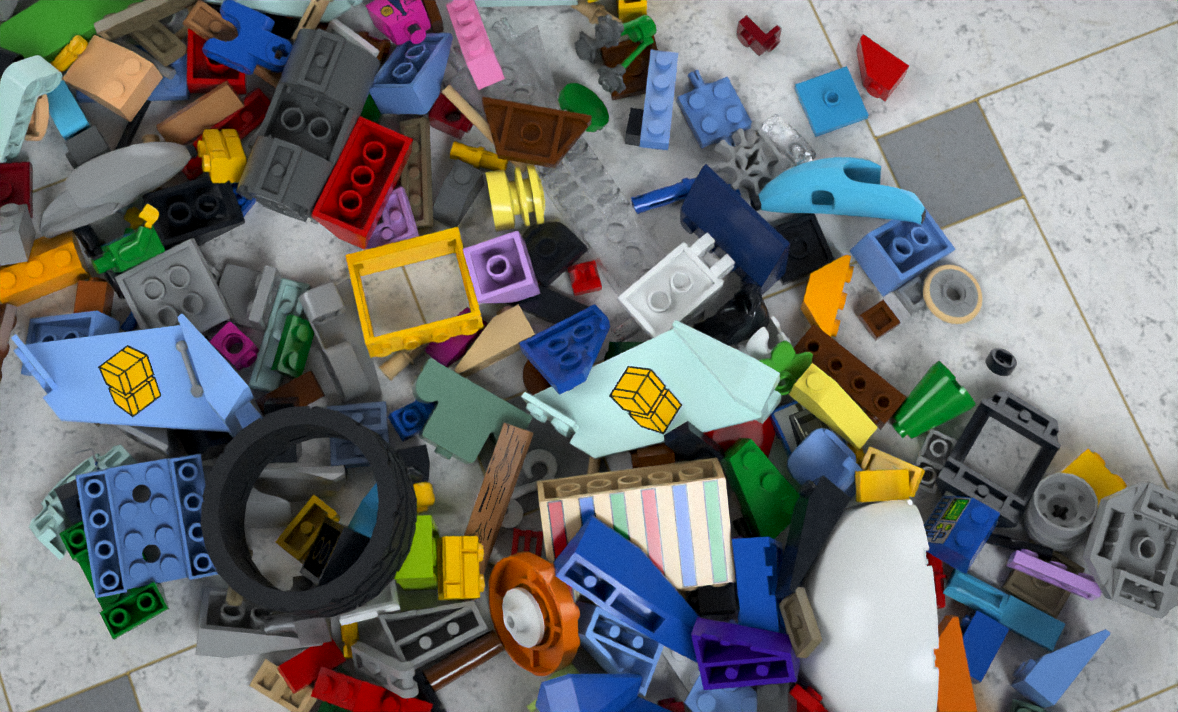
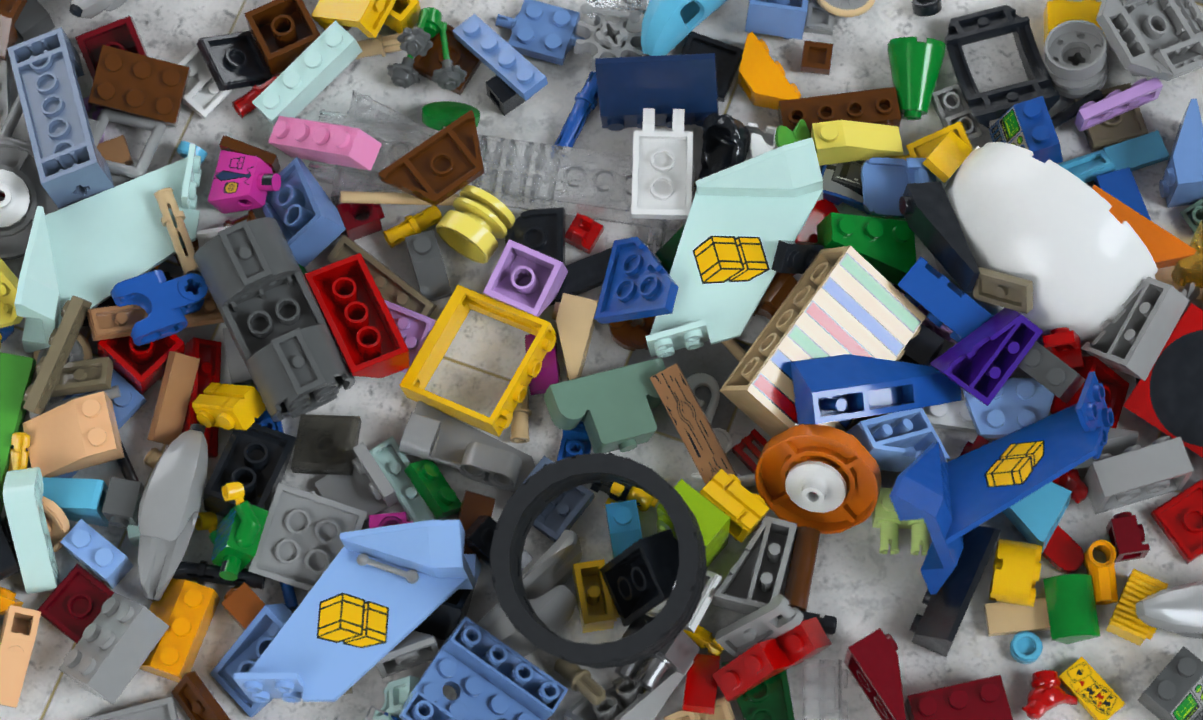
camera: 45 degrees left, 5 degrees down
(46, 166) = (96, 553): none -> light blue brick
(260, 244) = (326, 444): none -> clear smoke plate

